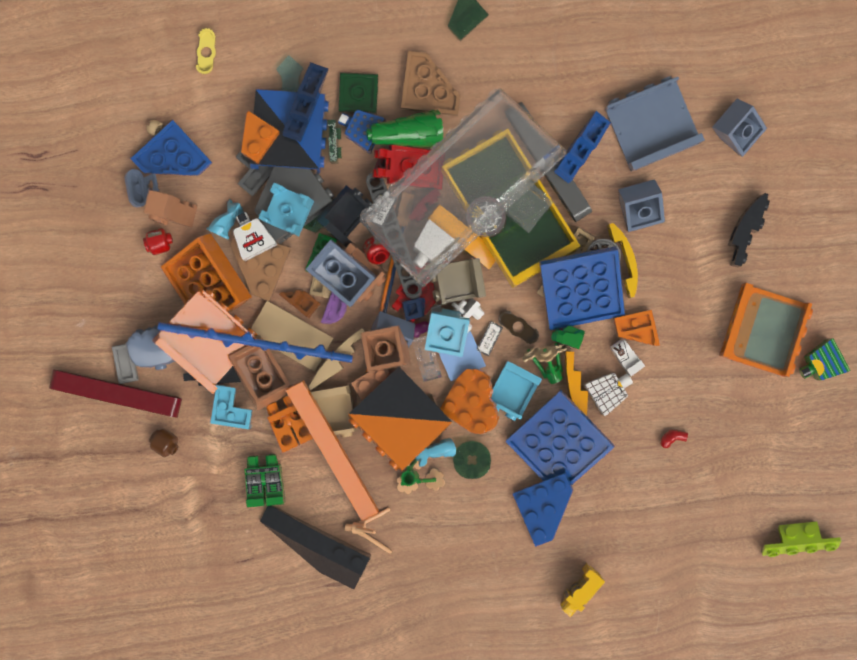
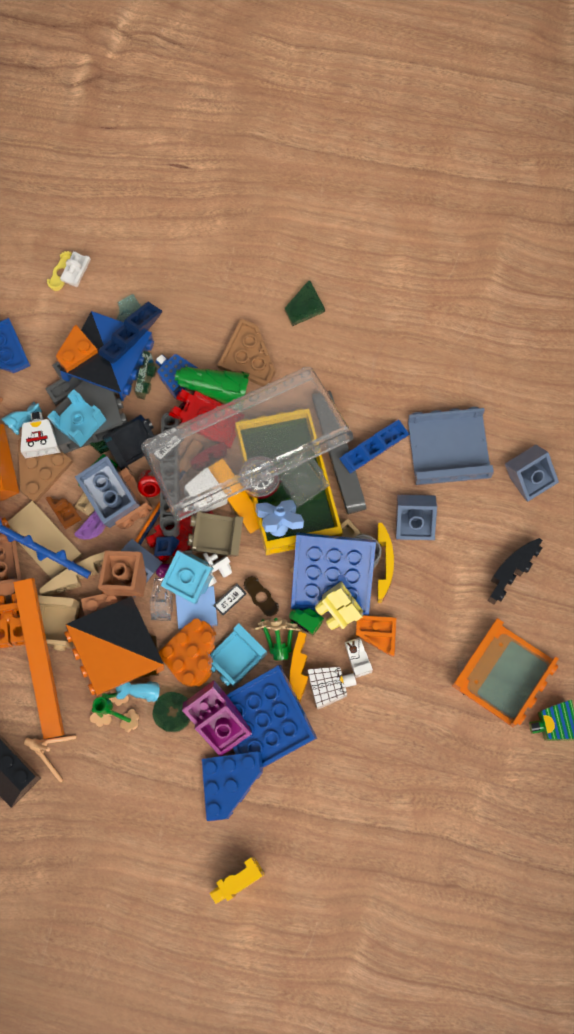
camera: 25 degrees right, 15 degrees down
(221, 46) = (75, 269): none -> white hips
(358, 92) = (184, 341): dark green tile -> none
(516, 454) = (216, 718): none -> magenta slope
(518, 251) = (279, 518): none -> light blue plant
(598, 315) = (340, 605): none -> light yellow hips
(671, 436) = (380, 751): red arm -> none
(800, 538) = (483, 902): lime bracket -> none

